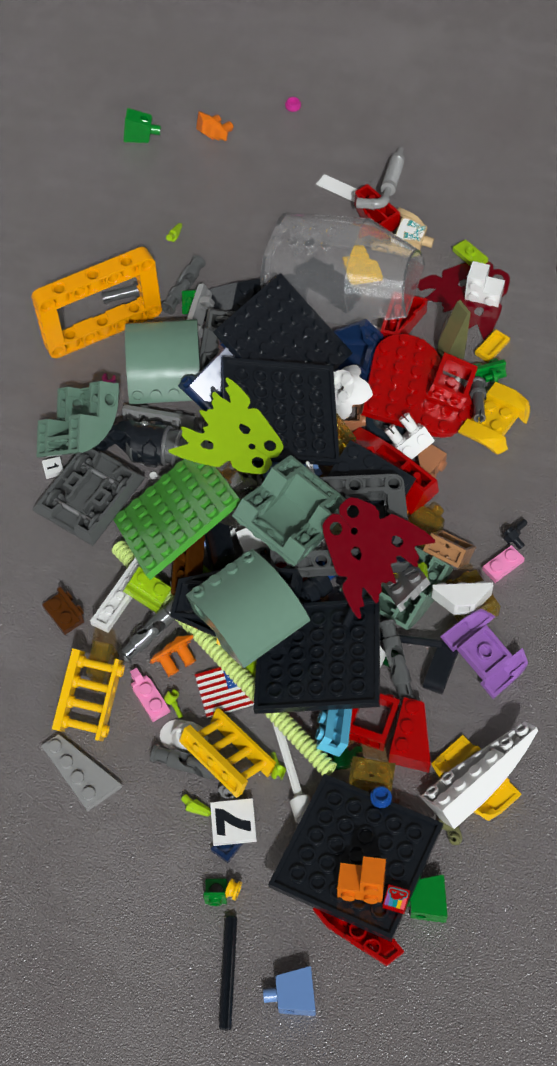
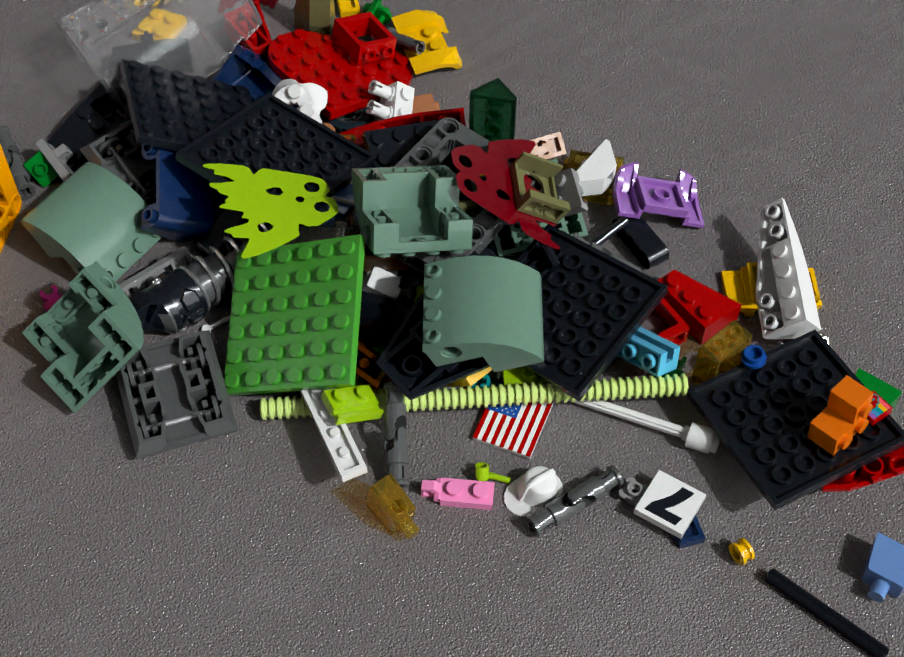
camera: 55 degrees left, 5 degrees down
(52, 467) = (101, 409): white tile -> none
(63, 611) = (288, 506): reddish brown bracket -> none
(68, 700) = (408, 562): yellow fence -> none
(82, 775) = (496, 612): light grey wing -> none
(180, 646) = (429, 444): orange connector -> none
(195, 806) = (621, 528): lime bar -> none
(215, 898) = (741, 573): green bracket -> none
(216, 763) = (592, 471): yellow fence -> none
(279, 770) = (643, 432): lime hand -> none
(409, 566) = (538, 204): none -> olive panel
(426, 501) = (493, 111): none -> clear green slope
(503, 564) = (575, 133): bright pink plate -> none
(512, 534) = (554, 107): black piece -> none

